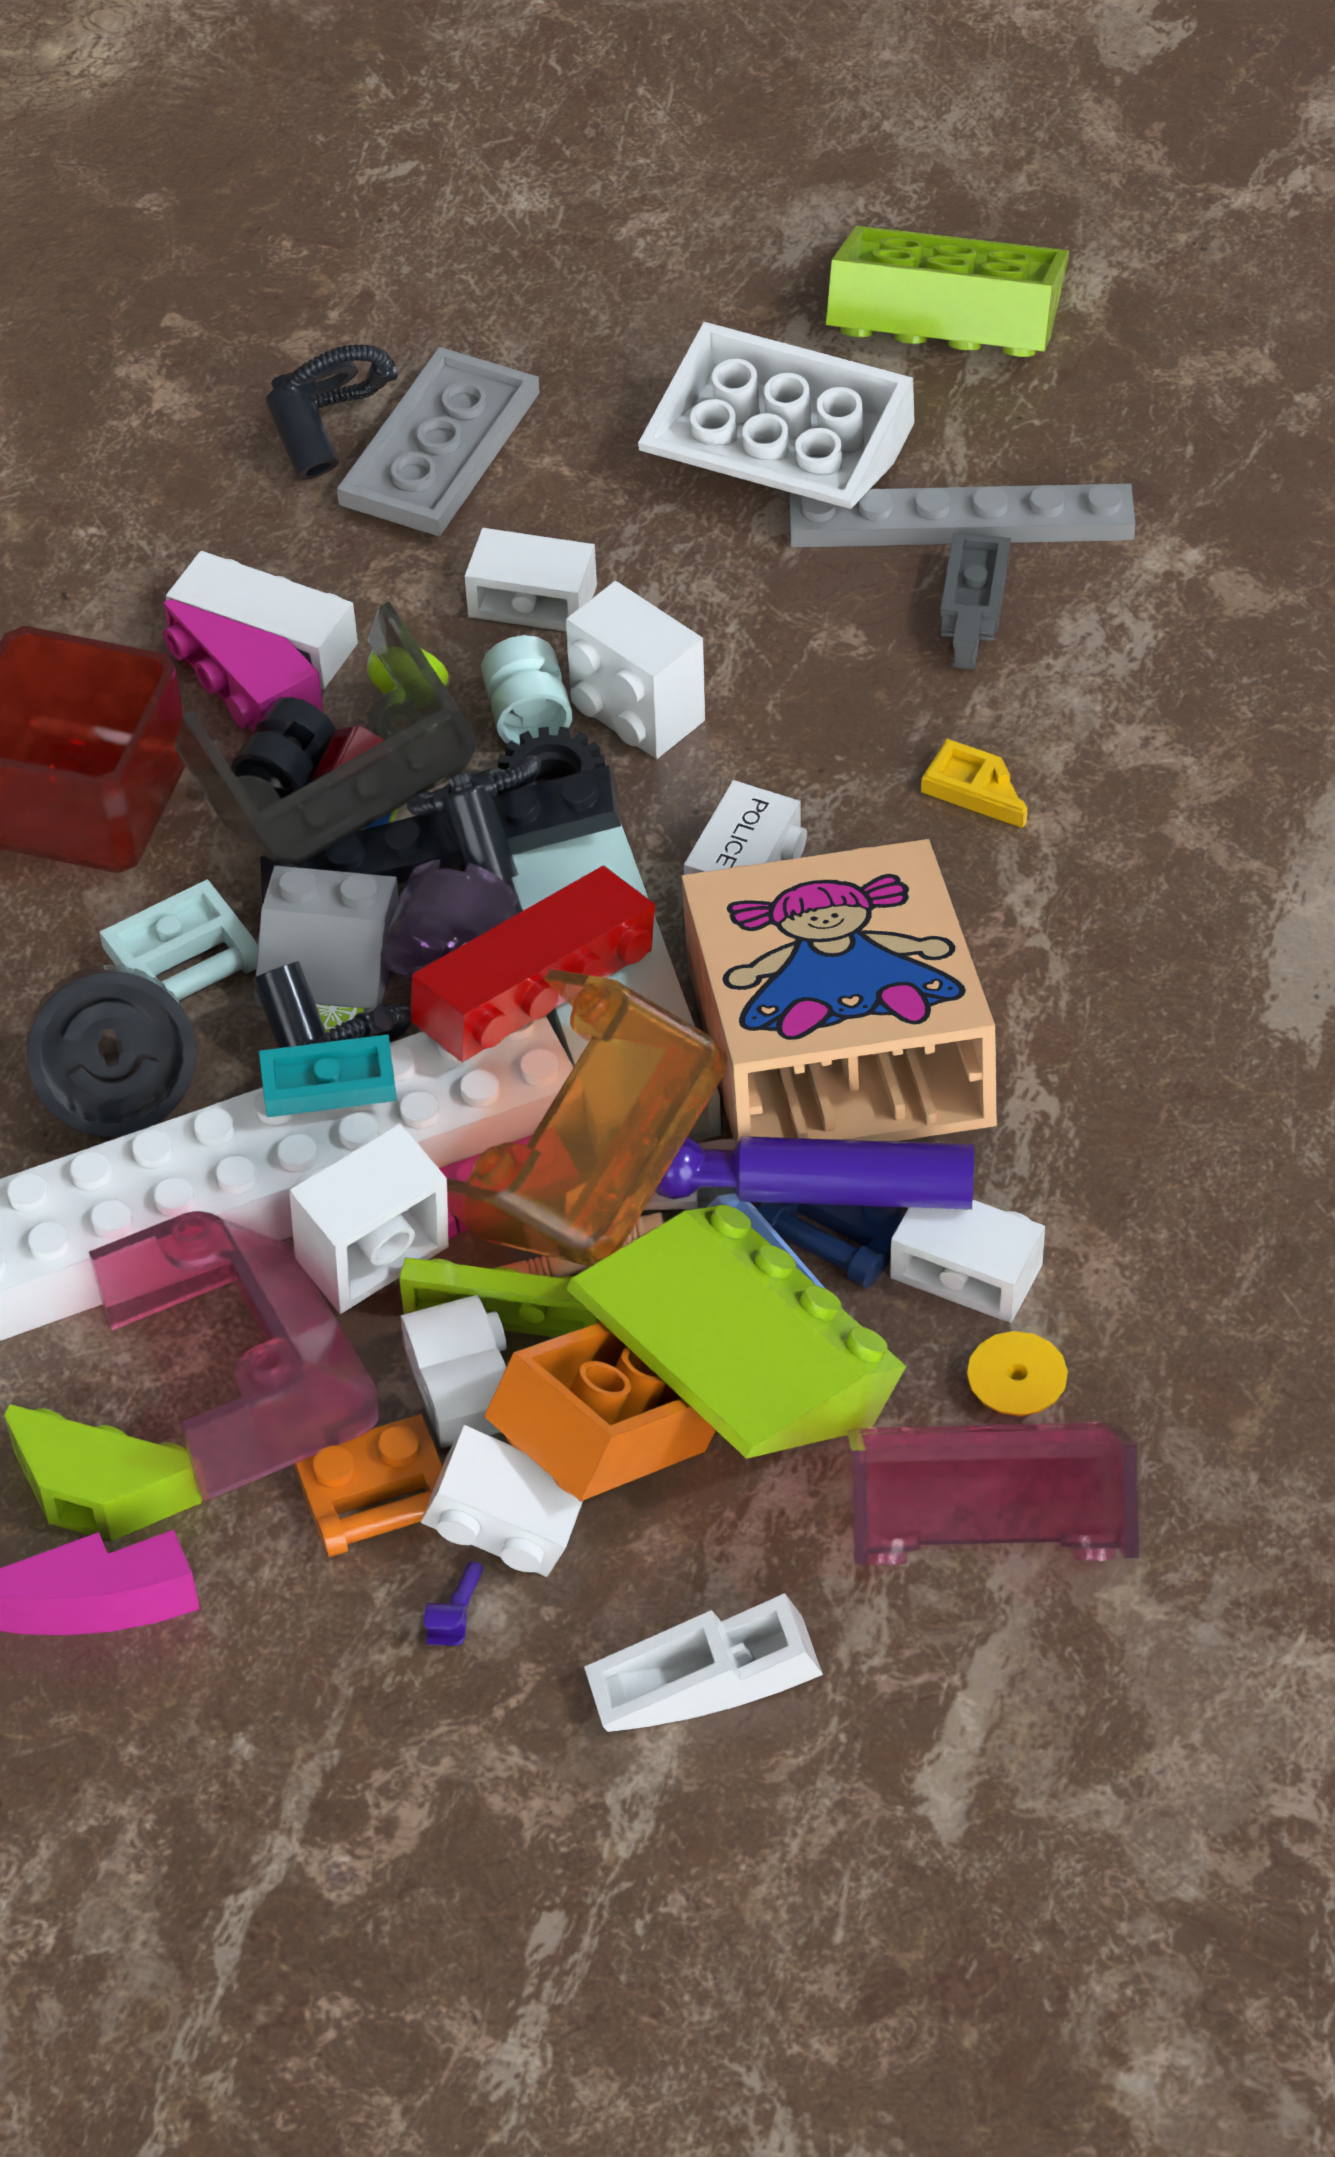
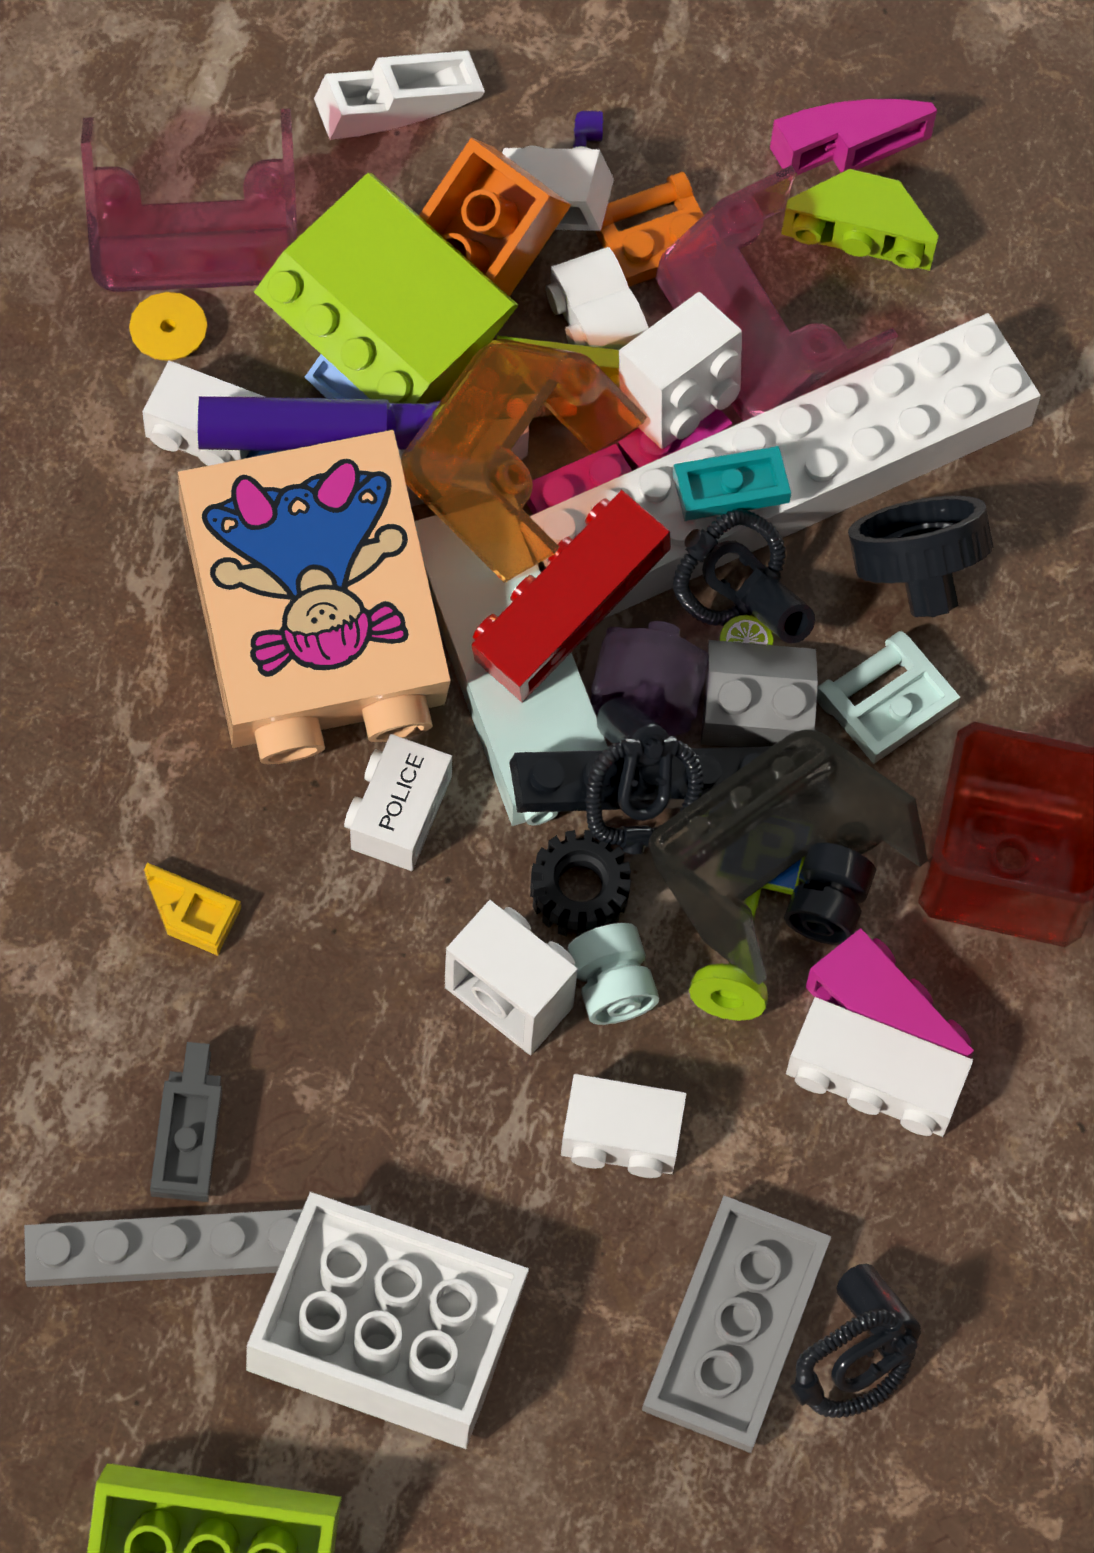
camera: 170 degrees right, 15 degrees up
(345, 746) = (764, 872): dark red slope -> none

